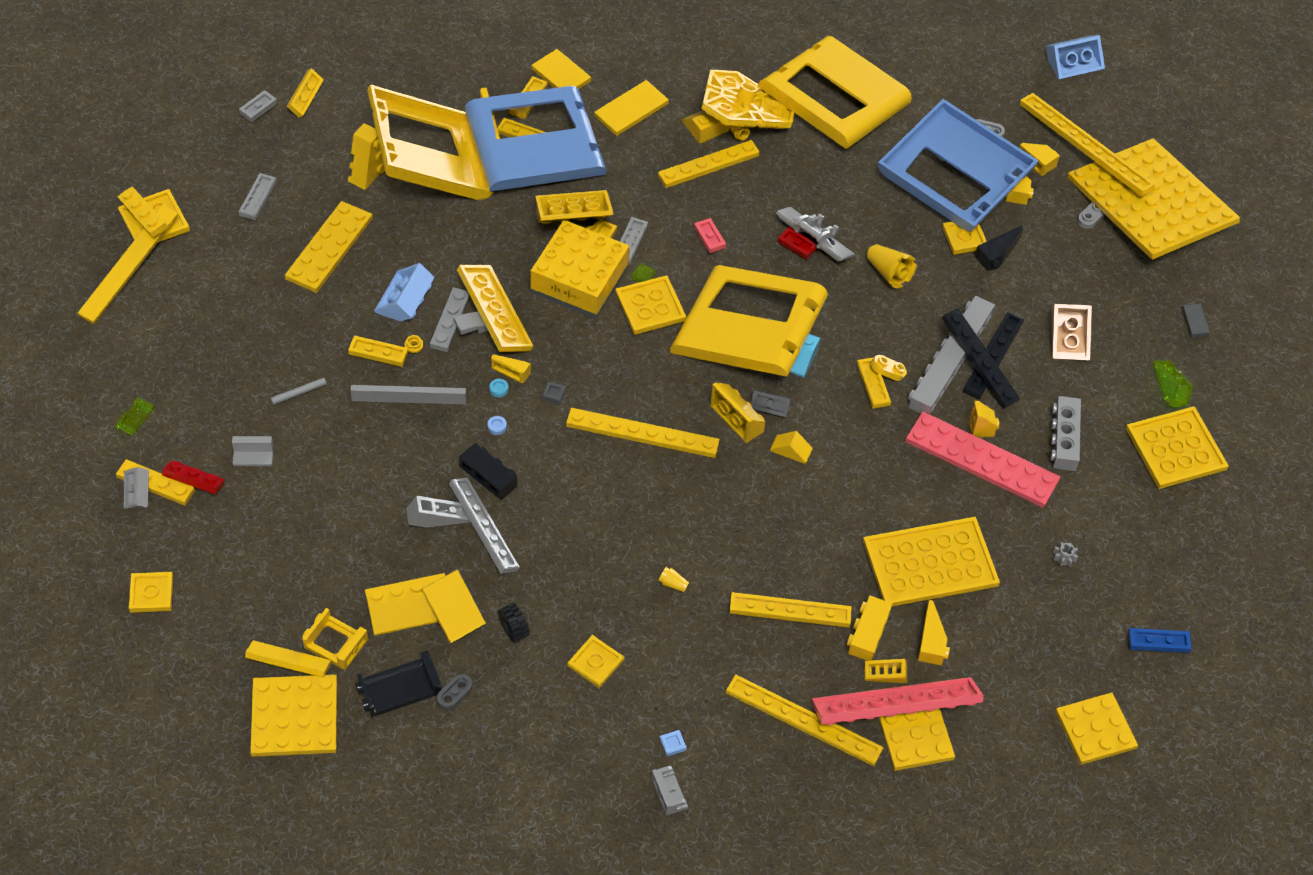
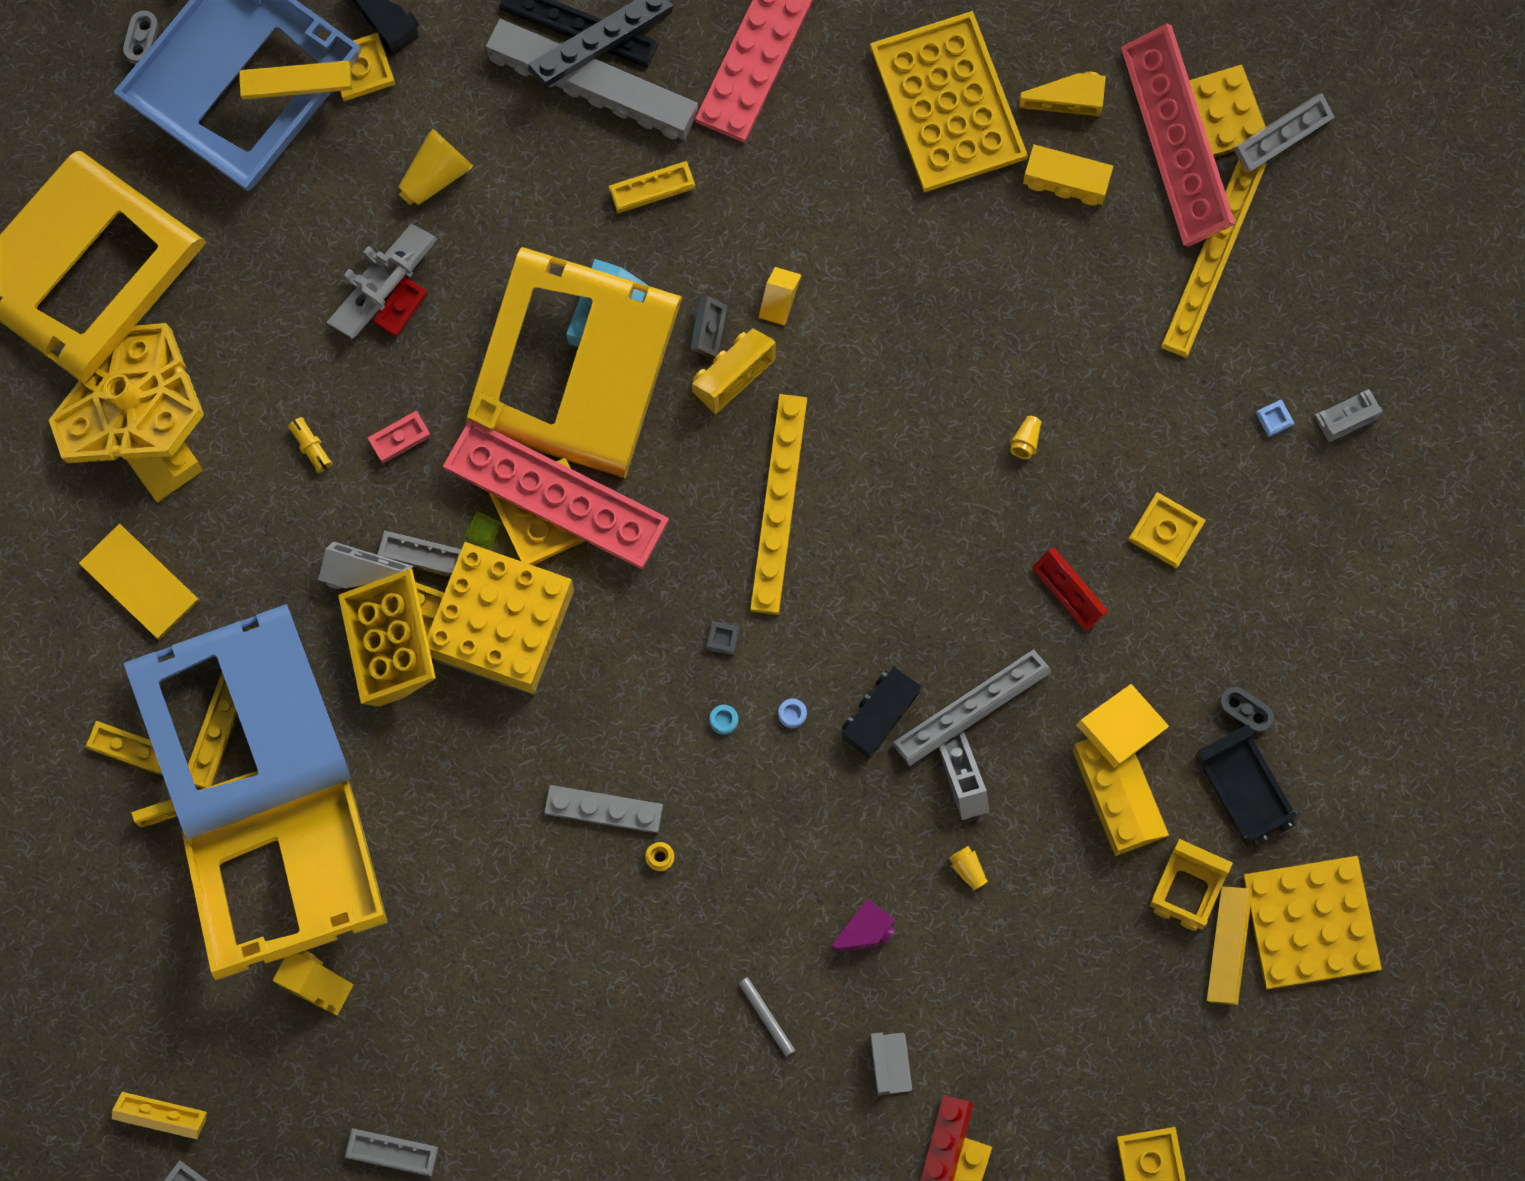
camera: 90 degrees left, 20 degrees up
(328, 246) = (480, 1020): yellow plate -> none
(344, 447) = (865, 929): none -> magenta slope
(373, 510) = (968, 867): none -> yellow cone
(378, 351) = (681, 907): yellow plate -> none
(405, 293) = (566, 884): light blue slope -> none
(408, 394) = (758, 848): light grey tile -> none
(470, 322) = (612, 768): light grey slope -> none
(495, 308) = (583, 741): yellow plate -> none
(510, 367) = (693, 696): yellow slope -> none
(513, 622) = (1135, 641): black tyre -> none
(559, 592) = (1069, 589): none -> red plate
(560, 71) = (71, 702): yellow tile -> none
(624, 204) = (353, 567): none -> light grey slope
(659, 306) = (556, 494): none -> coral plate
(708, 164) = (248, 452): yellow plate -> none
(709, 192) = (310, 445): none -> yellow pin
(718, 270) = (486, 410): none -> yellow plate
(790, 609) = (1052, 280): yellow plate -> none
(888, 368) = (626, 166): yellow plate -> none
(892, 678) = (1126, 131): yellow slope -> none
(897, 774) = (1283, 132): none -> light grey plate
(950, 189) = (295, 80): none -> yellow tile
(983, 421) = (710, 35): yellow slope -> none

